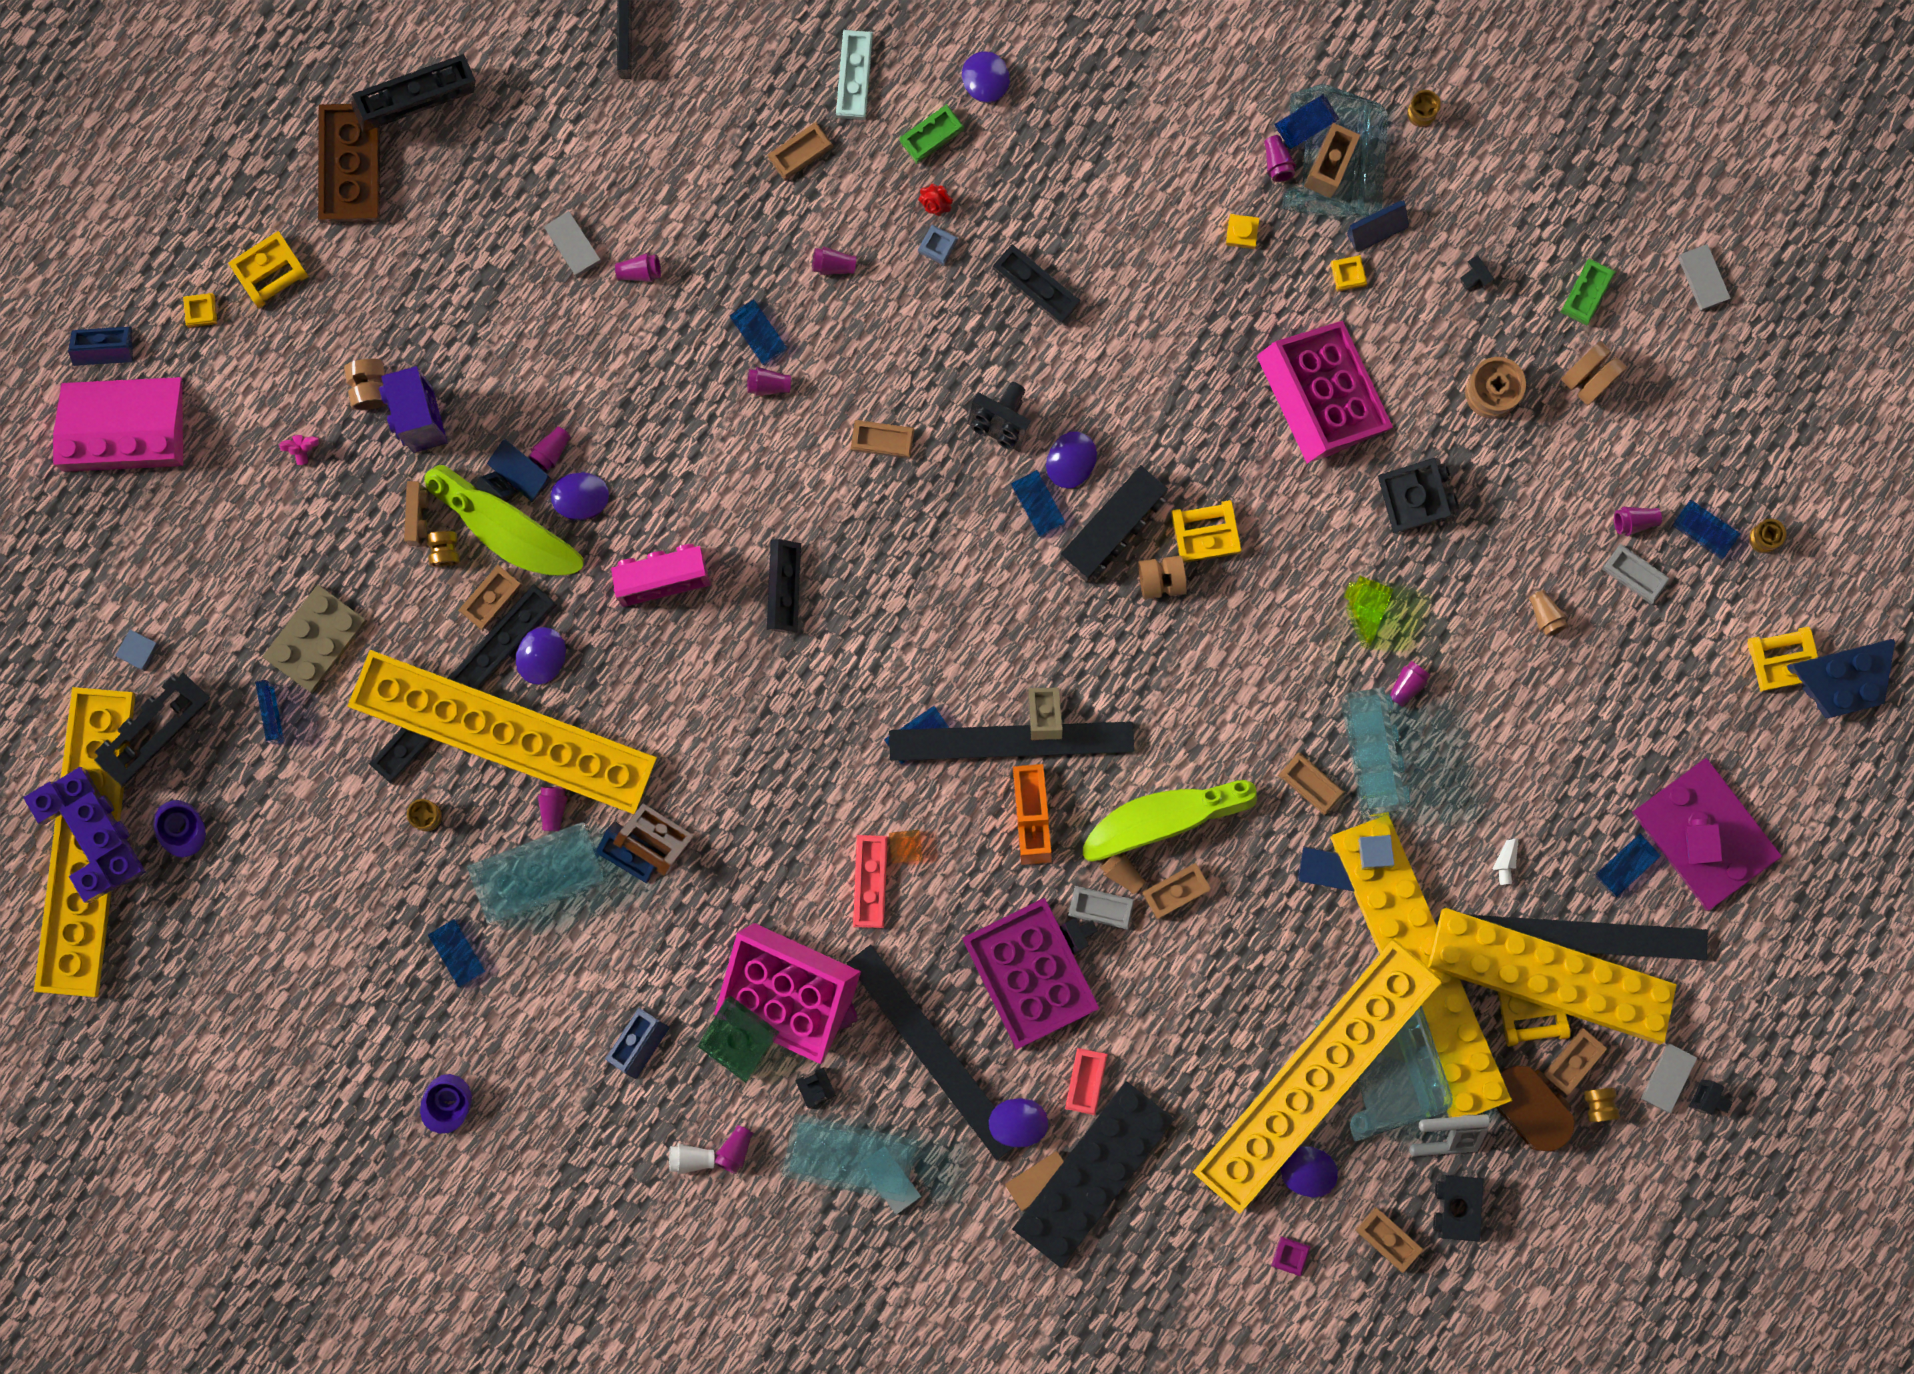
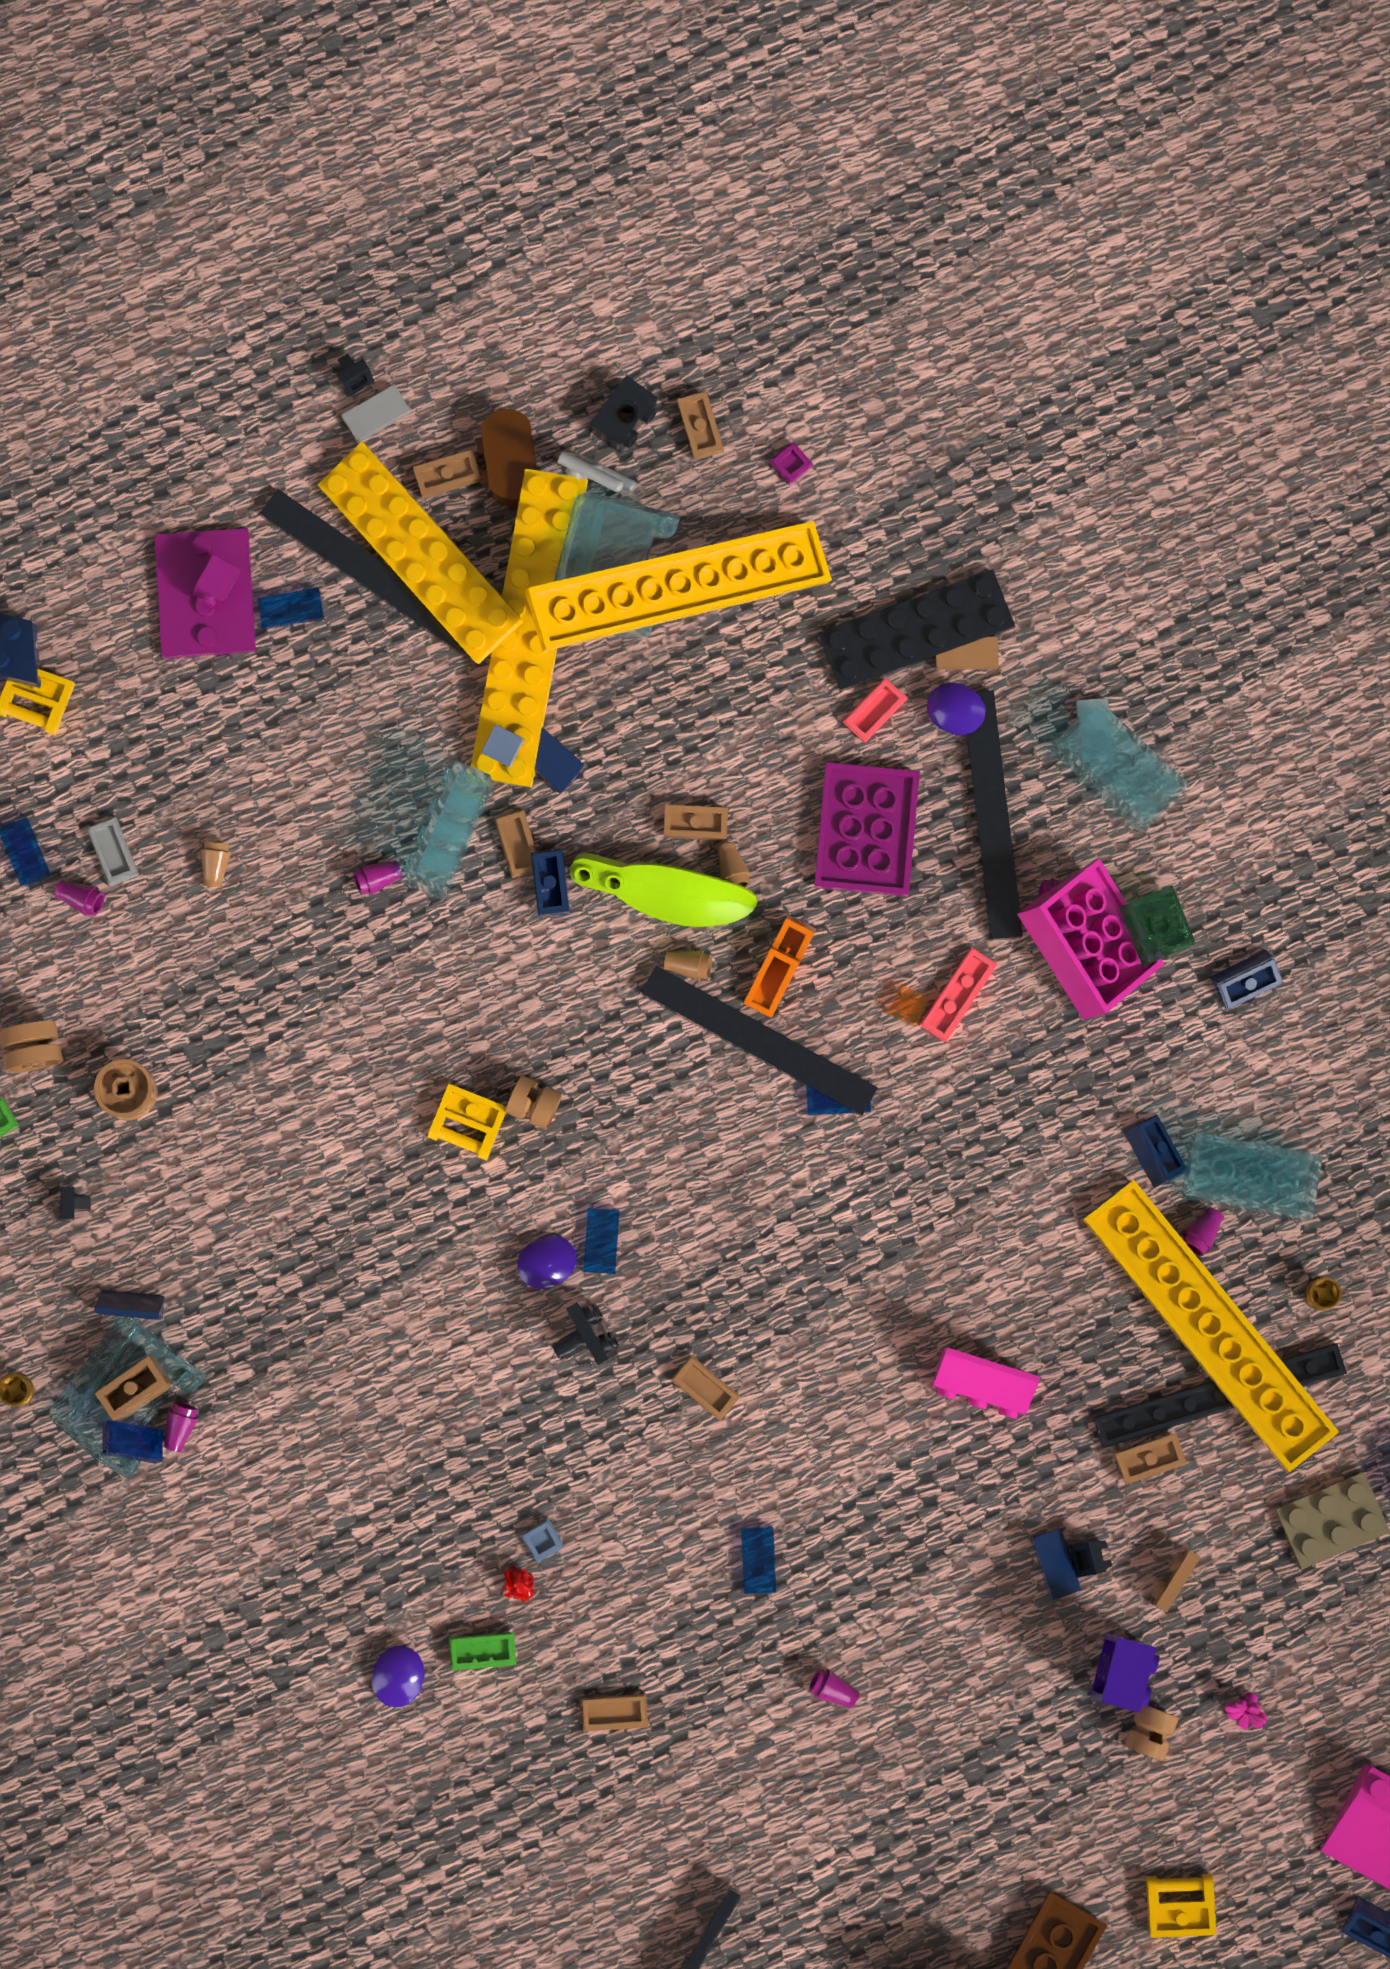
camera: 155 degrees left, 0 degrees up
(200, 310) = (1266, 1906): yellow tile -> none
(442, 549) = (1168, 1530): pearl gold wheel -> none
(457, 953) = (1361, 1154): clear blue tile -> none
(503, 526) = (1103, 1520): lime plant -> none
(540, 655) = (1134, 1377): dark purple hat -> none
(548, 450) = (1017, 1565): magenta cone -> none
(572, 244) = (880, 1753): light grey tile -> none
(579, 496) = (1013, 1505): dark purple hat -> none
(657, 832) = (1121, 1148): reddish brown plate -> none
(689, 1159) = (1259, 851): white cone -> none
(734, 1150) = (1215, 835): magenta cone -> none
(767, 382) = (778, 1505): magenta cone -> none
(783, 586) = (877, 1304): black plate -> none
(815, 1087) = (1113, 846): black tile -> none
(830, 262) = (650, 1583): magenta cone -> none
(854, 75) = (518, 1756): light aqua tile -> none
(1036, 284) = (476, 1445): black plate -> none
(1045, 713) = (715, 1044): dark tan plate -> none
(1076, 935) = (806, 837): black tile -> none
(1101, 907) = (769, 849): light grey tile -> none
(1106, 770) = (689, 963): none -> medium nougat cone
(1113, 524) = (545, 1178): black brick -> none
(1242, 231) = (256, 1379): yellow plate -> none
(1263, 766) = (550, 883): none -> dark blue slope
(1310, 1172) = (730, 518): dark purple hat -> none
(1324, 391) = (279, 1182): dark pink slope -> none
(1348, 273) = (185, 1280): yellow tile -> none
(1366, 607) = (370, 965): clear neon green slope -> none
(1418, 495) = (258, 1036): black plate -> none
(1507, 861) = (392, 674): white bar -> none
(1519, 1009) = (468, 545): yellow plate -> none
(1601, 1104) = (448, 425): pearl gold wheel -> none

